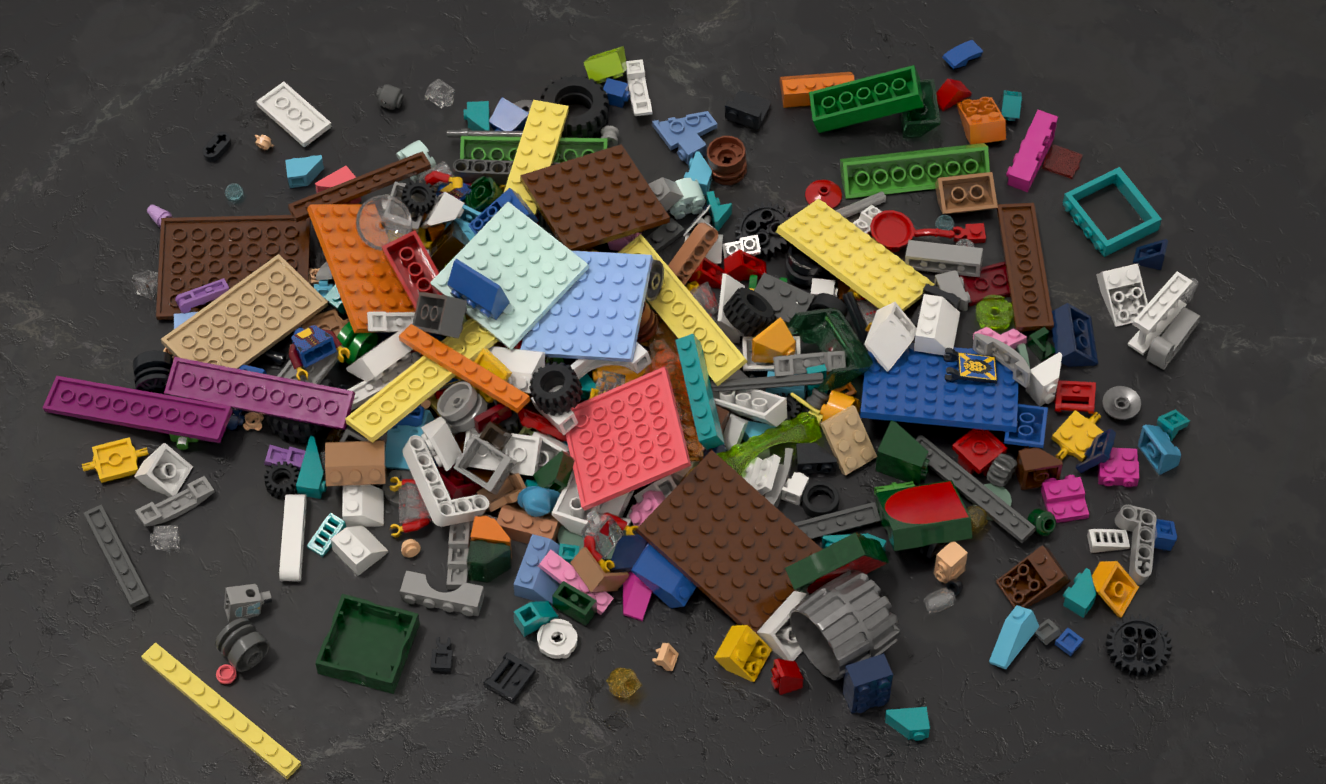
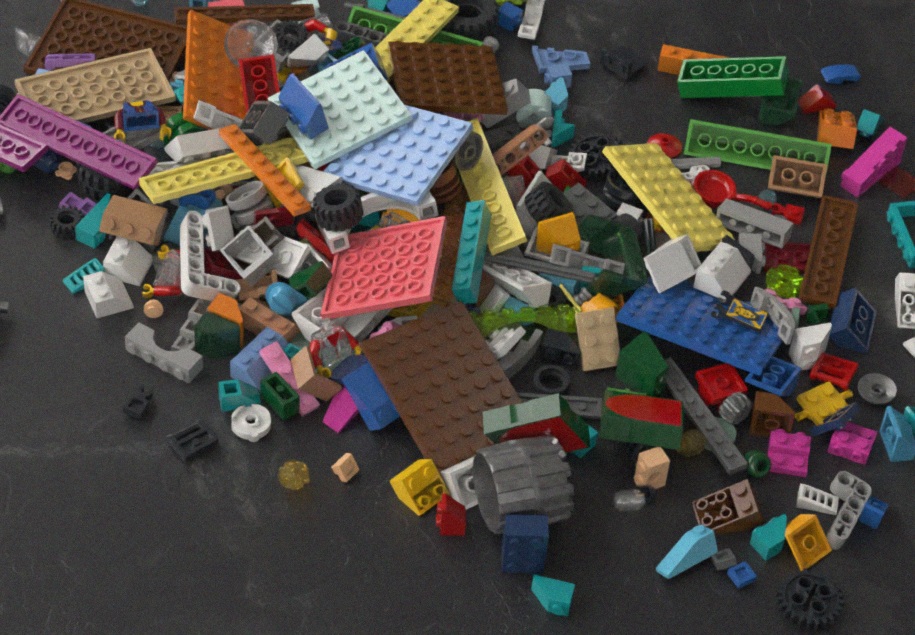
camera: 15 degrees right, 10 degrees down
(293, 537) = (52, 269): white beam -> none
(367, 643) = (75, 372): dark green tile -> none
(727, 160) = (585, 91): copper wheel -> none
(794, 488) = (530, 364): white brick -> none

